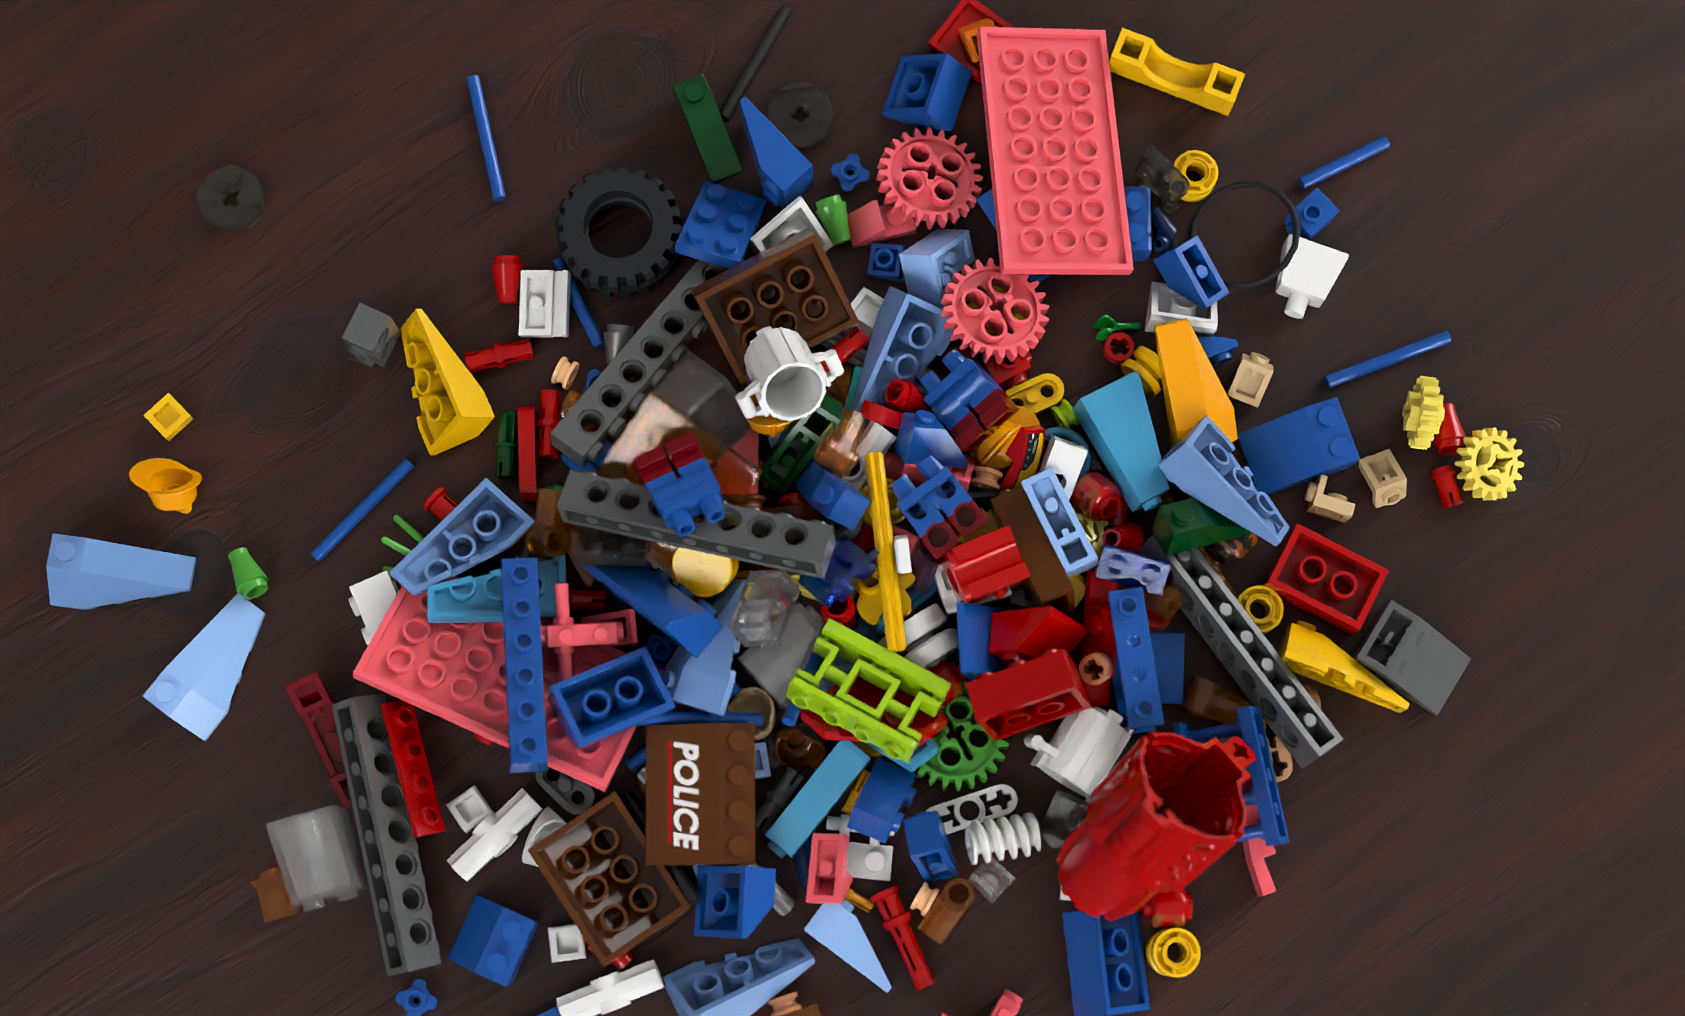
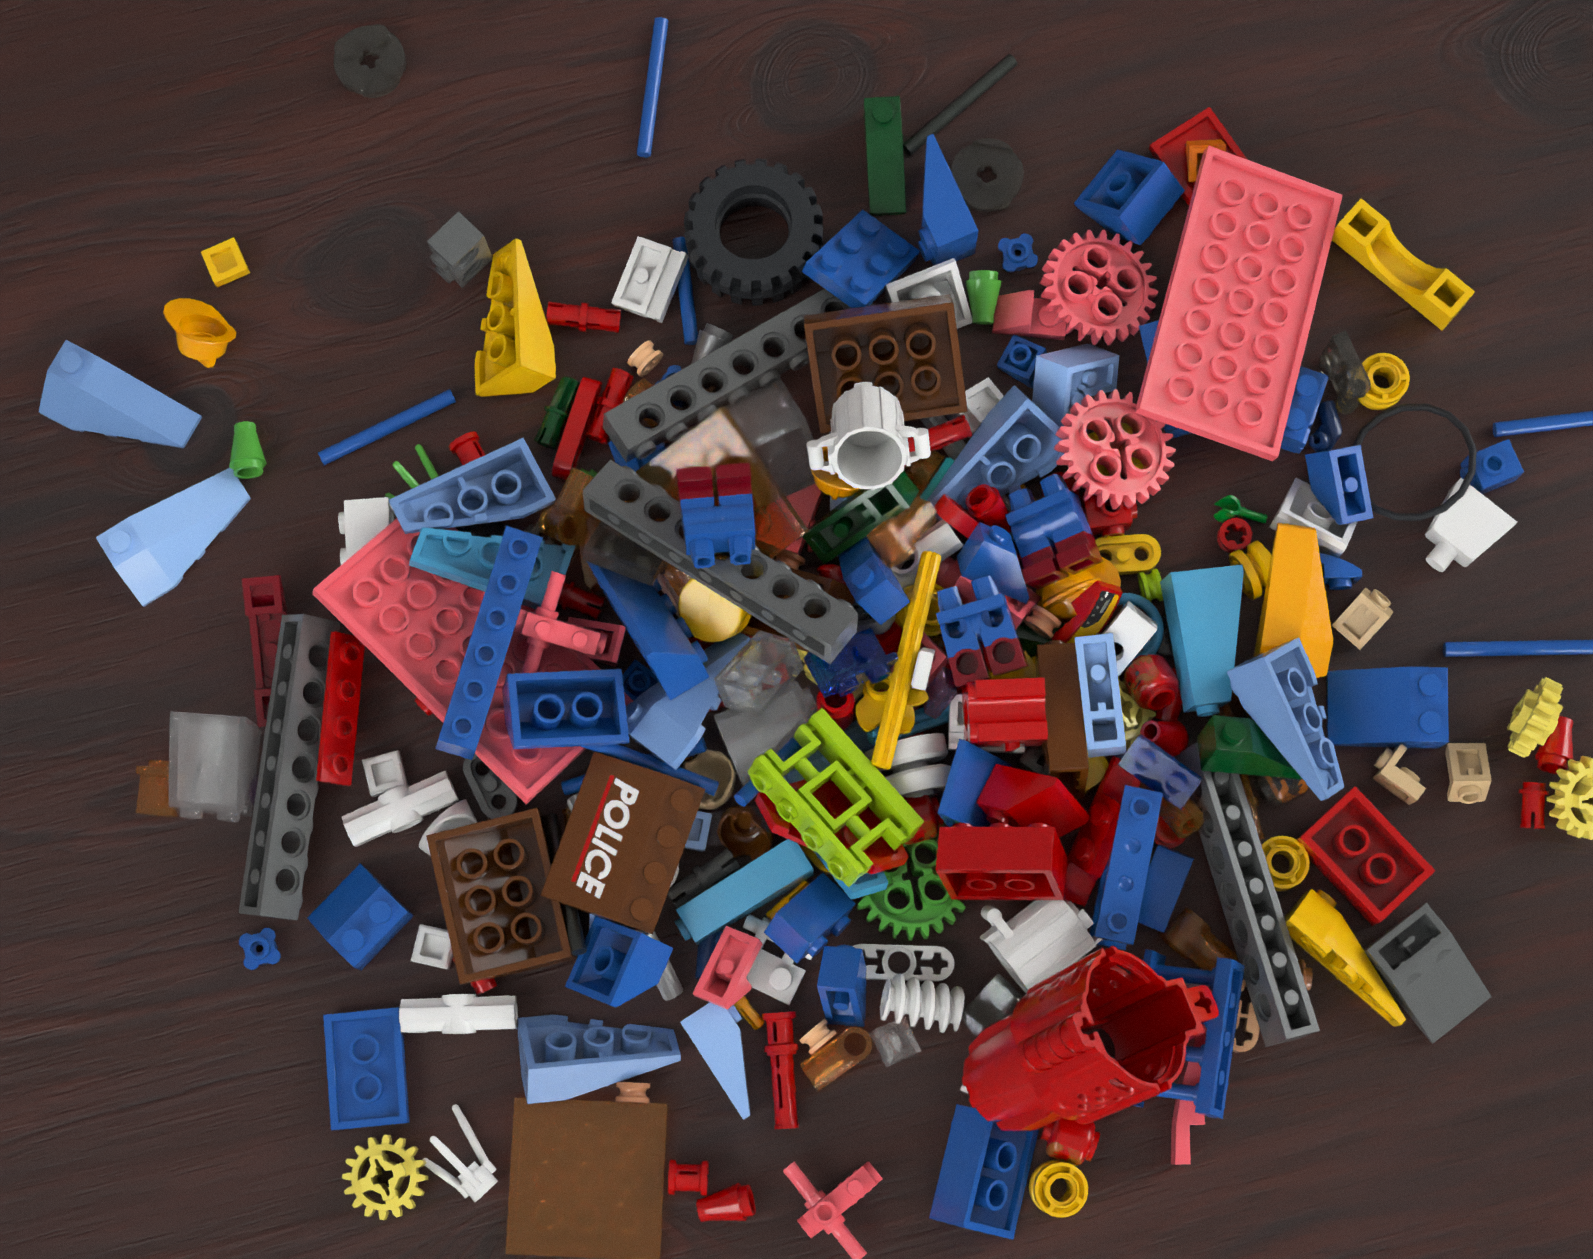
camera: 25 degrees right, 0 degrees up
(507, 278) = (621, 239): red cone -> none
(1090, 676) = (1091, 853): nougat bush -> none

